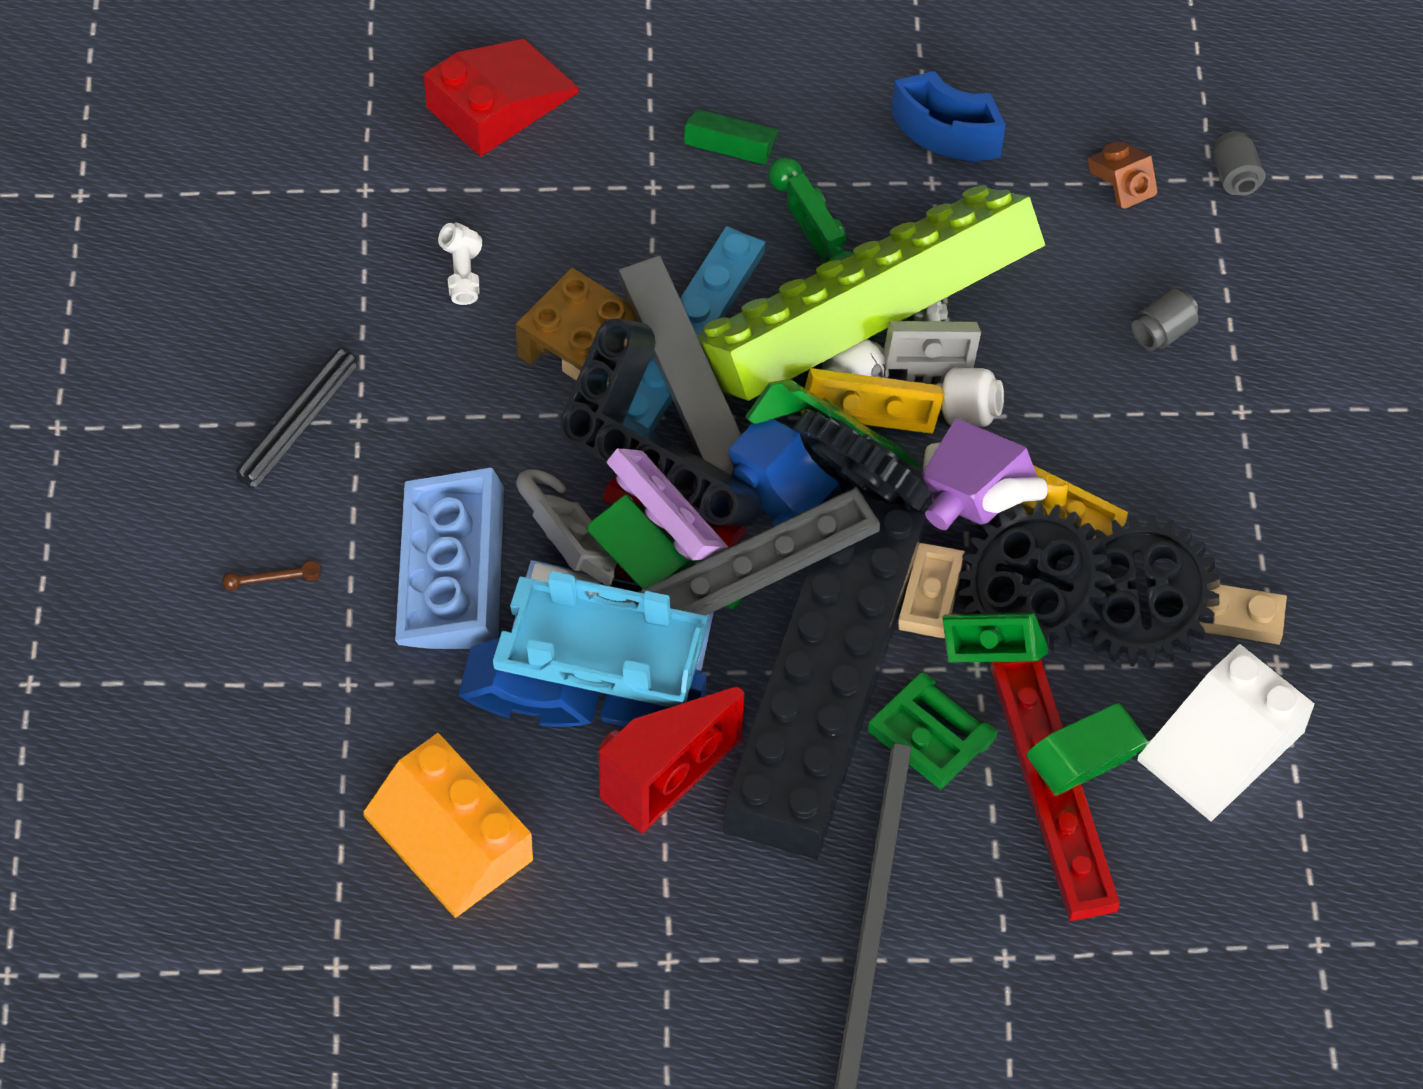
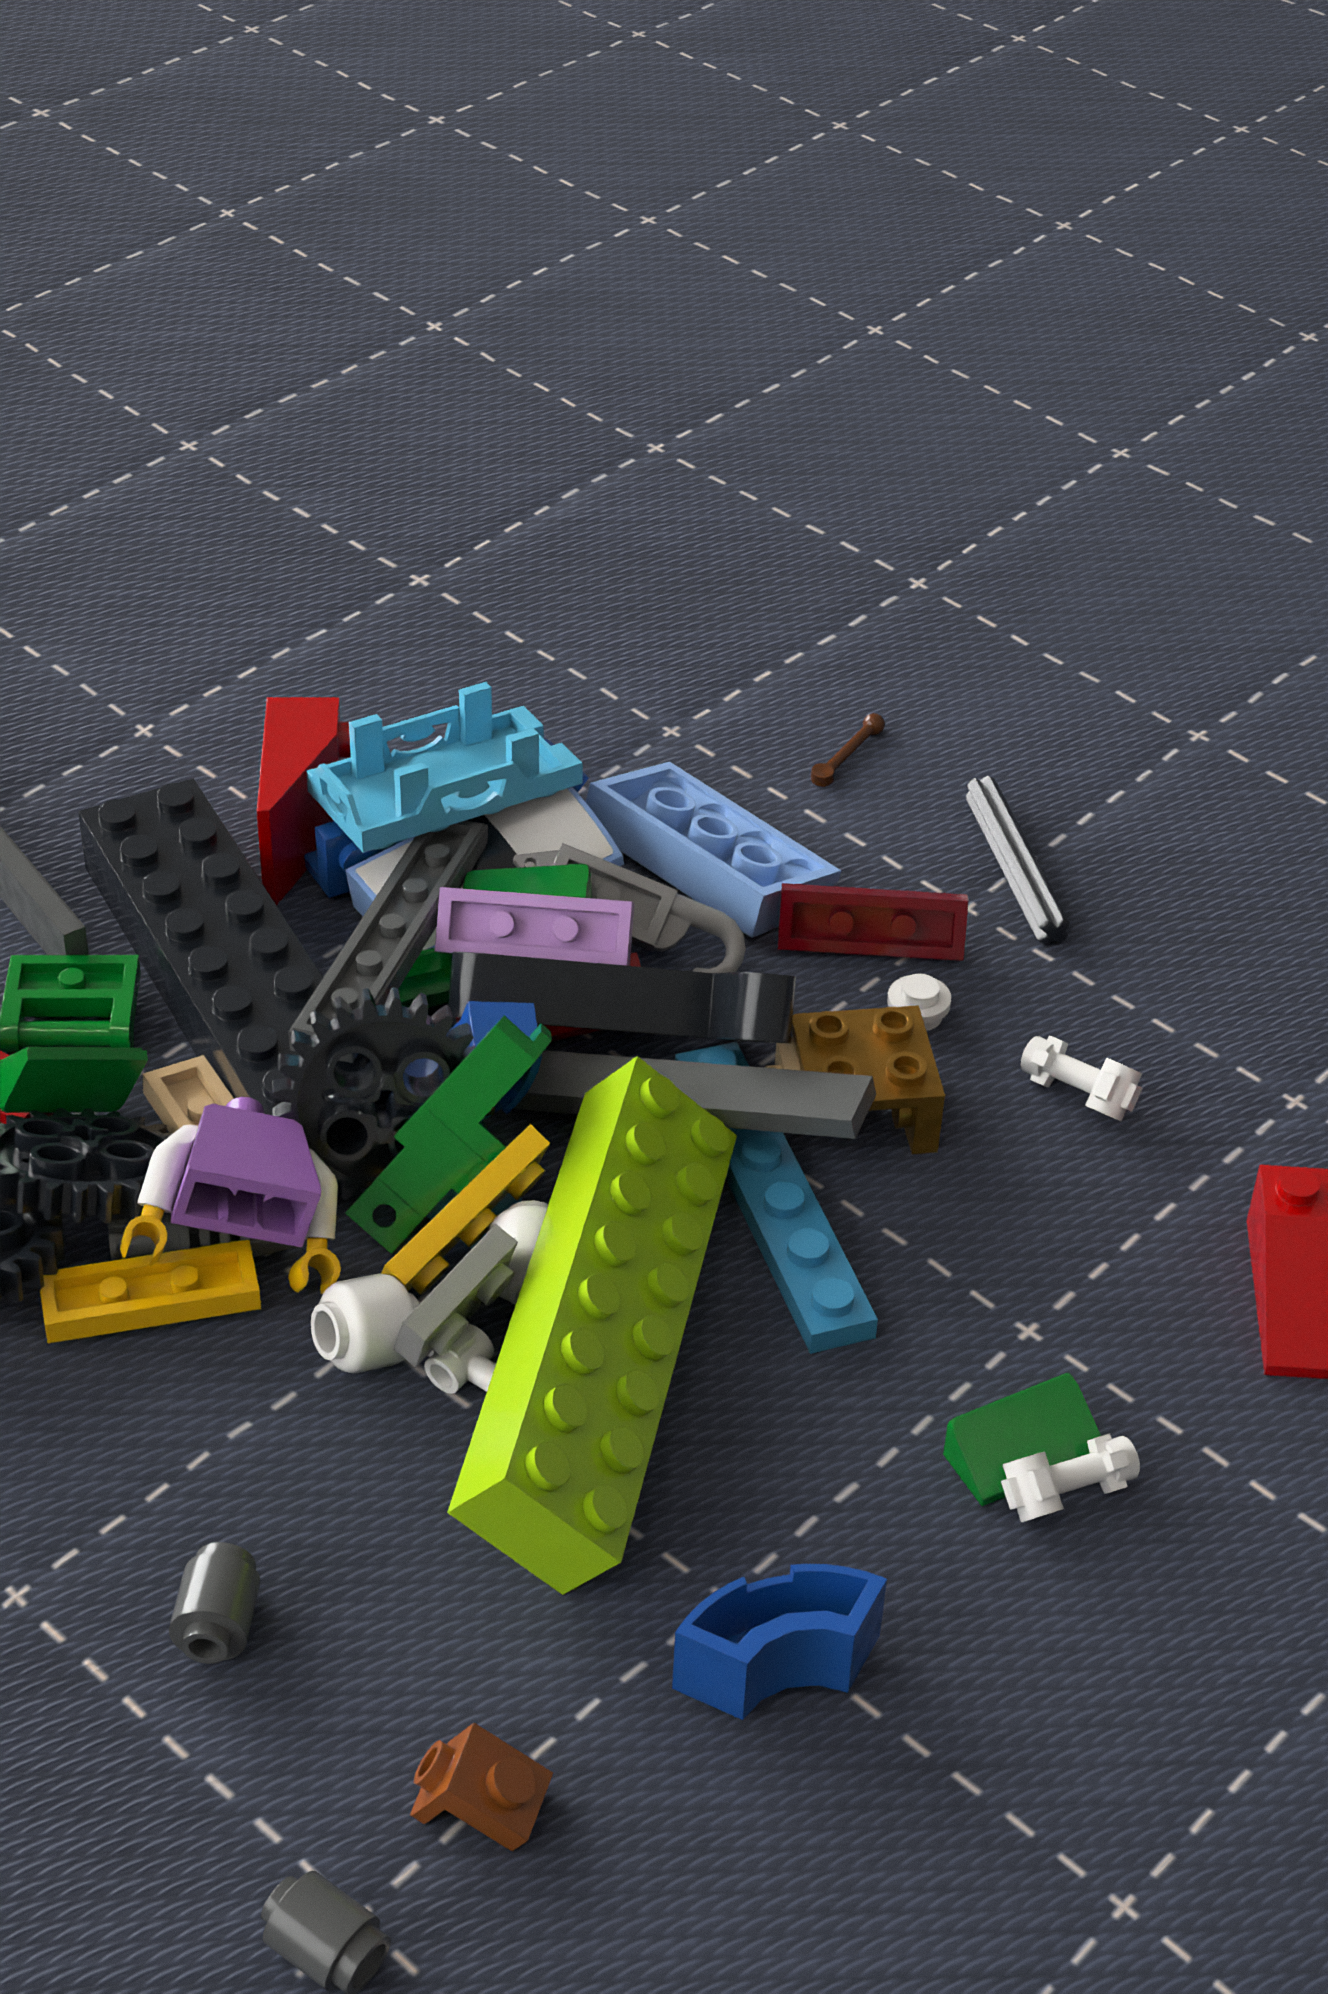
camera: 135 degrees right, 15 degrees down
(437, 425) = (873, 921): none -> dark red plate
(449, 826) = (423, 675): light orange slope -> none
(475, 372) = (925, 991): none -> white plate
(753, 108) = (1036, 1486): none -> white bar
(809, 210) = (793, 1397): green plate -> none

